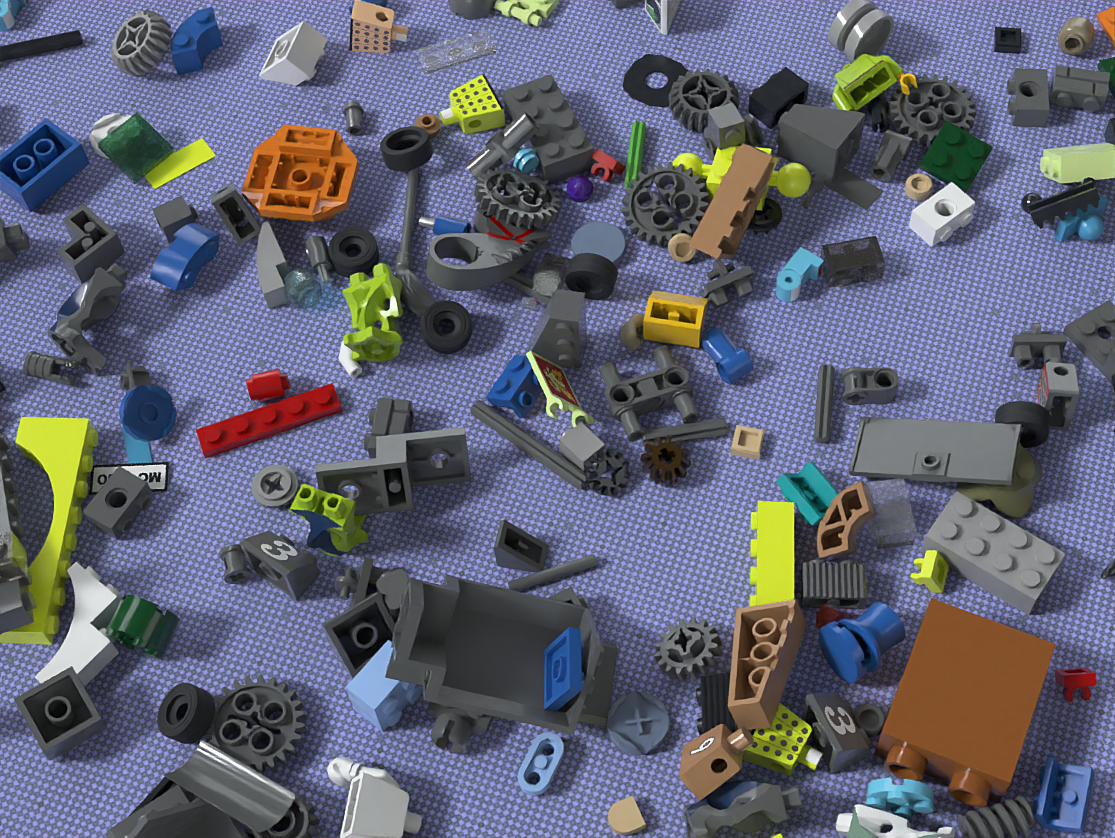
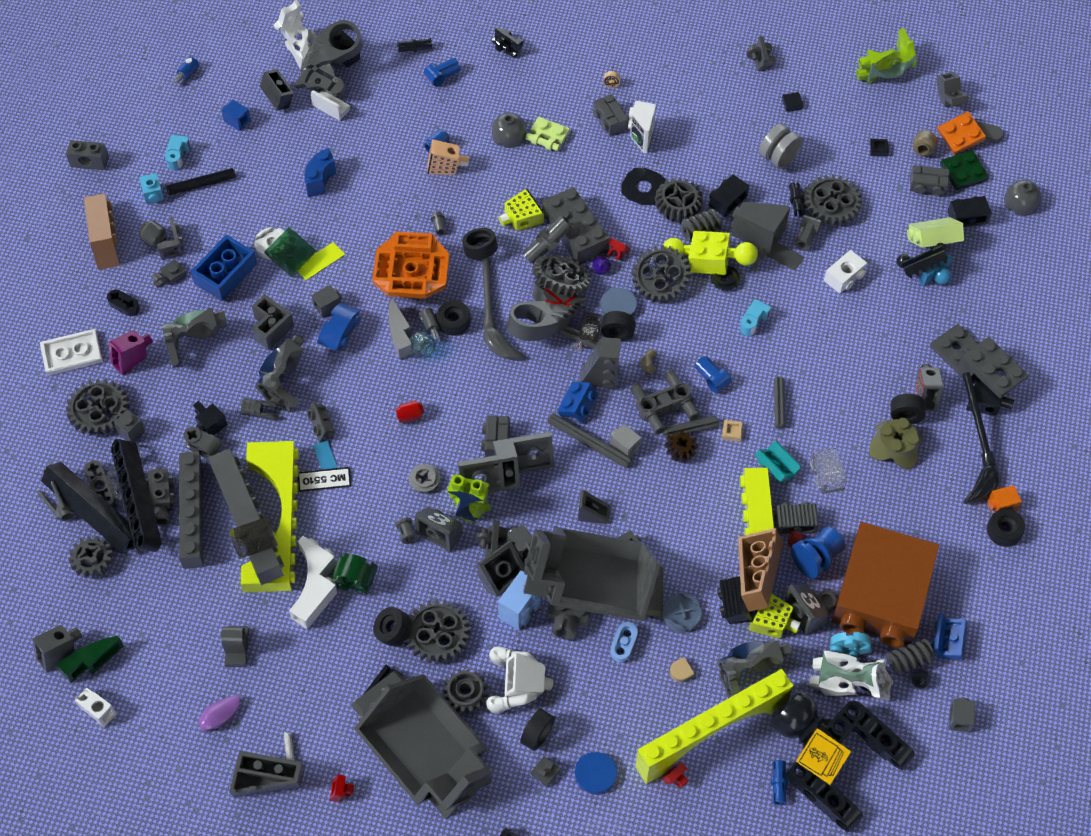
camera: 10 degrees left, 0 degrees up
(60, 713) = (311, 632): dark grey slope -> none
(118, 488) = (322, 485): dark grey brick -> none
(141, 42) = (281, 176): light grey gear -> none
(147, 413) = (332, 434): blue tile -> none
(233, 787) = (432, 668): dark grey sticker -> none
(234, 210) = (367, 291): dark grey torso -> none
(268, 420) = (412, 435): red plate -> none
(294, 55) = (390, 180): white slope -> none
(345, 358) = (459, 386): white arm -> none
(368, 305) = (482, 378): lime hips -> none
(430, 123) = (491, 221): medium nougat plate -> none
(441, 312) = (532, 358): black tyre -> none
(445, 225) = (514, 296): blue piece -> none
(455, 51) = (503, 172): clear plate -> none
(526, 160) = (564, 248): medium azure plate -> none
(553, 573) = (617, 522): dark grey bar -> none
(557, 389) = (606, 404): yellowish green flag -> none
(563, 669) = (634, 581): blue plate -> none
(597, 466) = (637, 453): black gear -> none
(635, 152) = (635, 239): bright green axle -> none
(674, 318) = (676, 351): yellow slope -> none
(679, 248) = (675, 303): tan tile -> none
(688, 649) = (702, 571): dark grey gear -> none
(713, 759) = (734, 629): medium nougat torso -> none
(726, 126) = (698, 219): dark grey brick -> none
(734, 203) = (709, 271): medium nougat wedge -> none
(738, 280) = (702, 330): dark grey hips -> none
(843, 520) = (800, 476): medium nougat brick -> none
(852, 262) = (789, 307): clear smoke brick -> none
(866, 79) = (787, 180): lime torso -> none
(868, 385) = (807, 390): dark grey piece -> none
(918, 187) = (828, 253): tan tile -> none
(933, 571) = (859, 506): neon yellow tile -> none
(936, 450) = (854, 428): door -> none
(955, 156) = (851, 231): dark green plate -> none
(993, 552) = (895, 491): light grey brick -> none
(1028, 97) = (896, 188): dark grey brick -> none
(1036, 344) = (913, 355): dark grey hips -> none
(1076, 678) = (952, 566): red tile -> none

